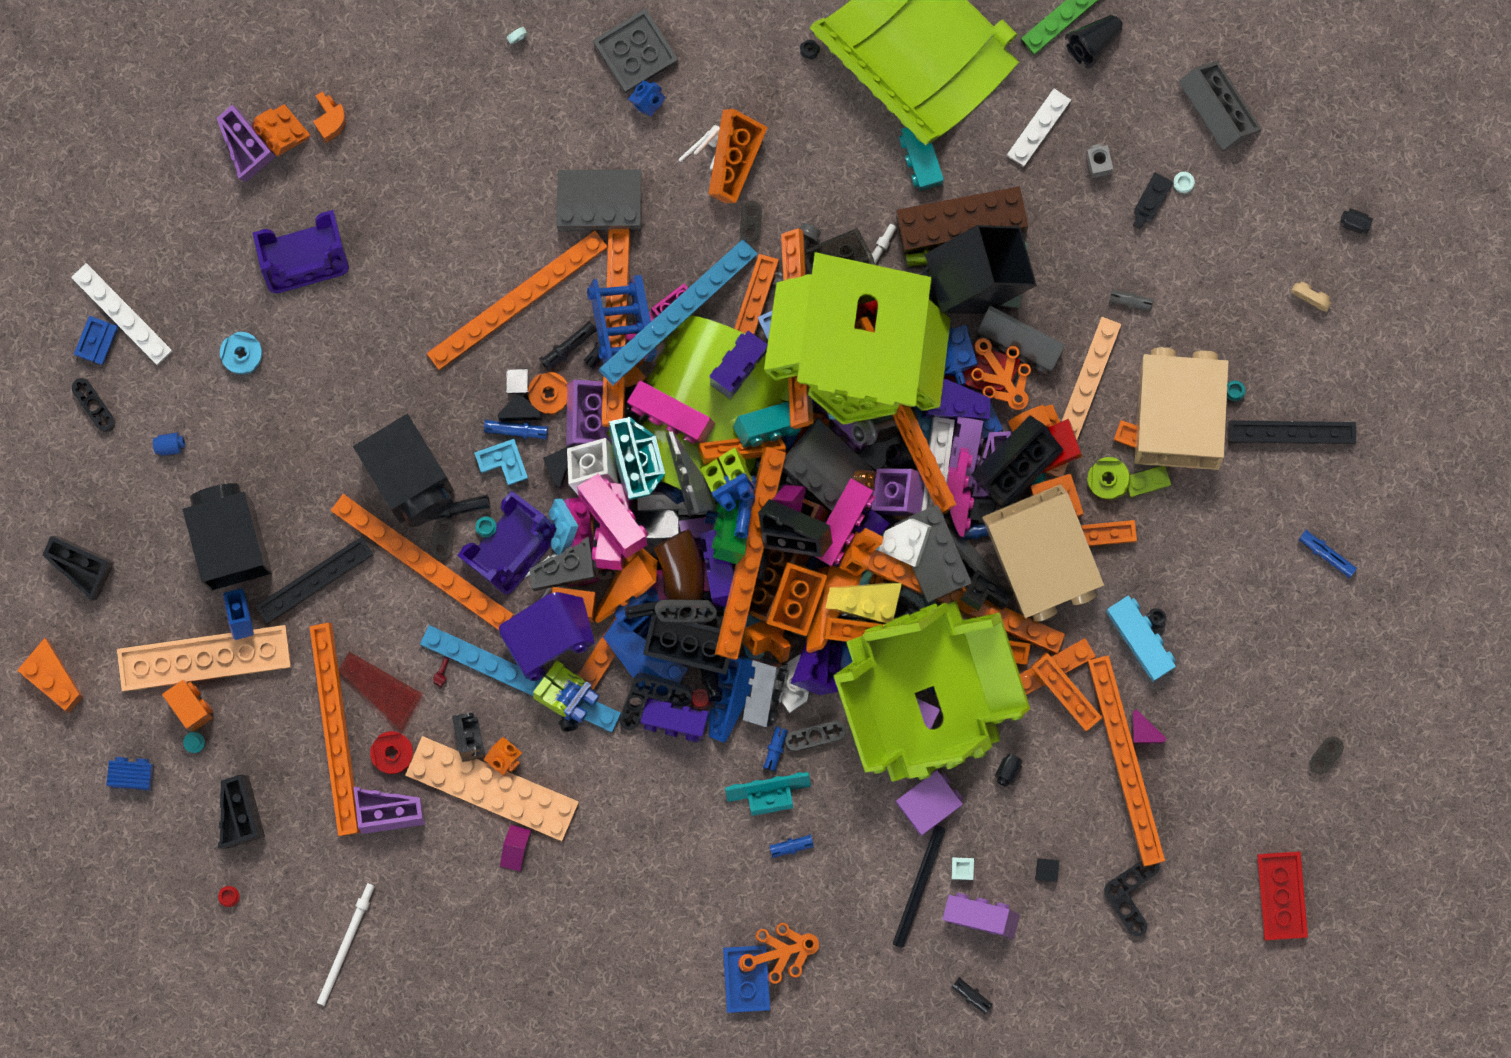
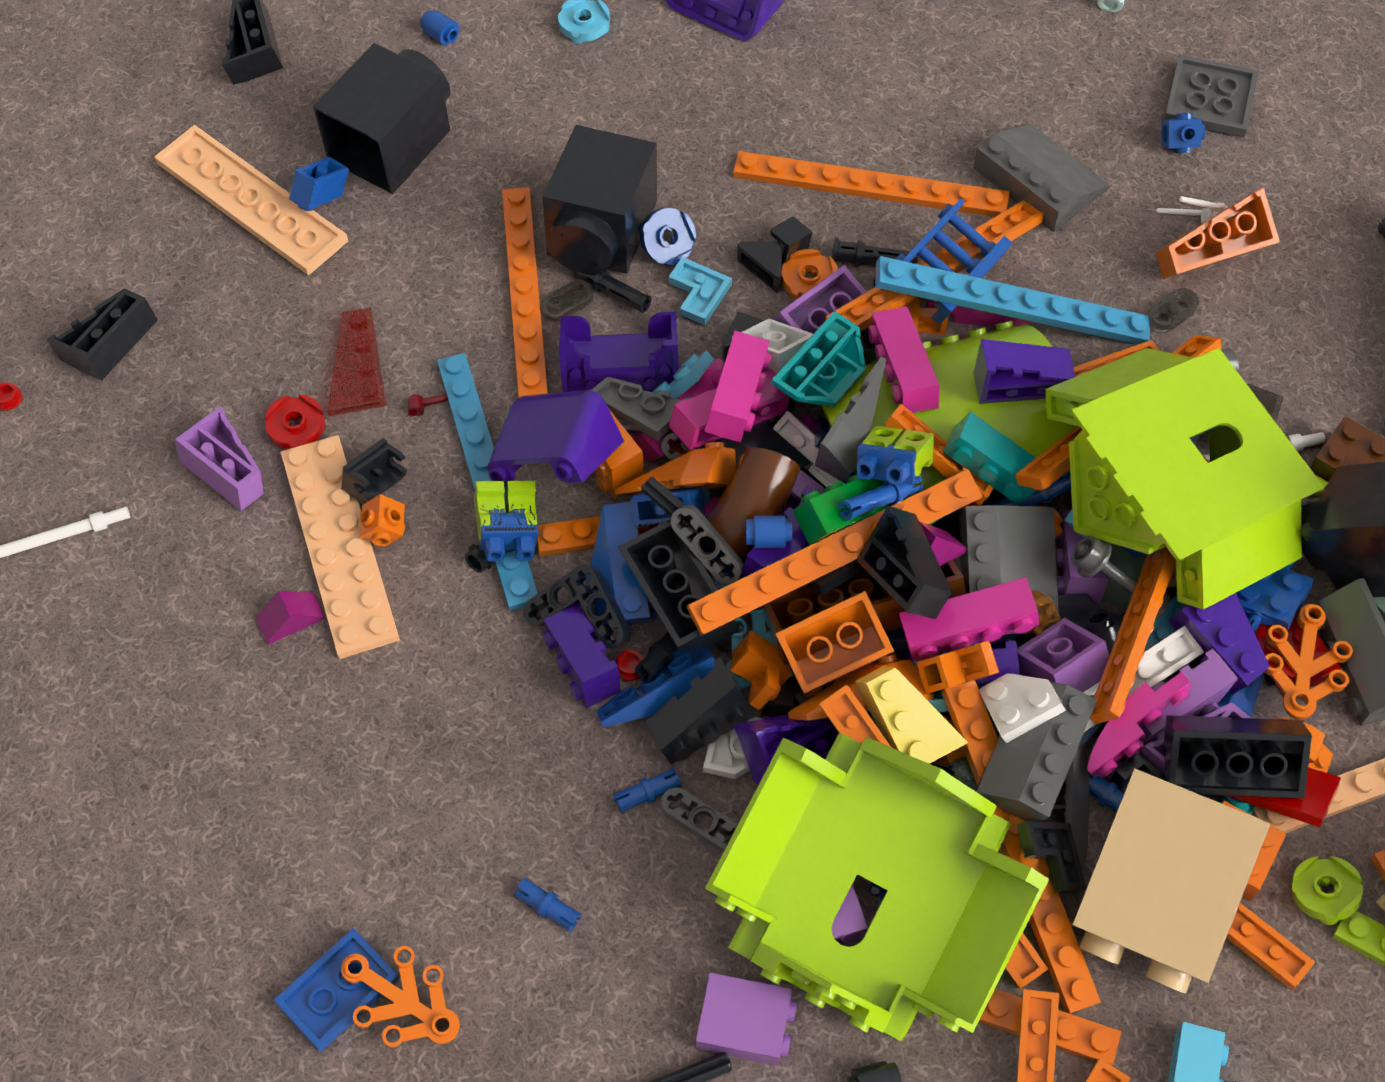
camera: 45 degrees right, 20 degrees down
(49, 675) = (118, 95): orange wedge -> none
(130, 774) = (70, 223): blue brick -> none
(188, 706) = (183, 211): orange brick -> none
(194, 742) = (153, 251): teal plate -> none
(314, 580) = (417, 227): black plate -> none
(334, 728) = (281, 347): orange plate -> none
(445, 453) = (653, 229): none -> plate
(486, 527) = (617, 325): teal plate -> none
(516, 429) = (750, 283): blue pin -> none
(712, 578) = (768, 531): none -> blue brick
(769, 794) = (588, 825): teal bracket -> none

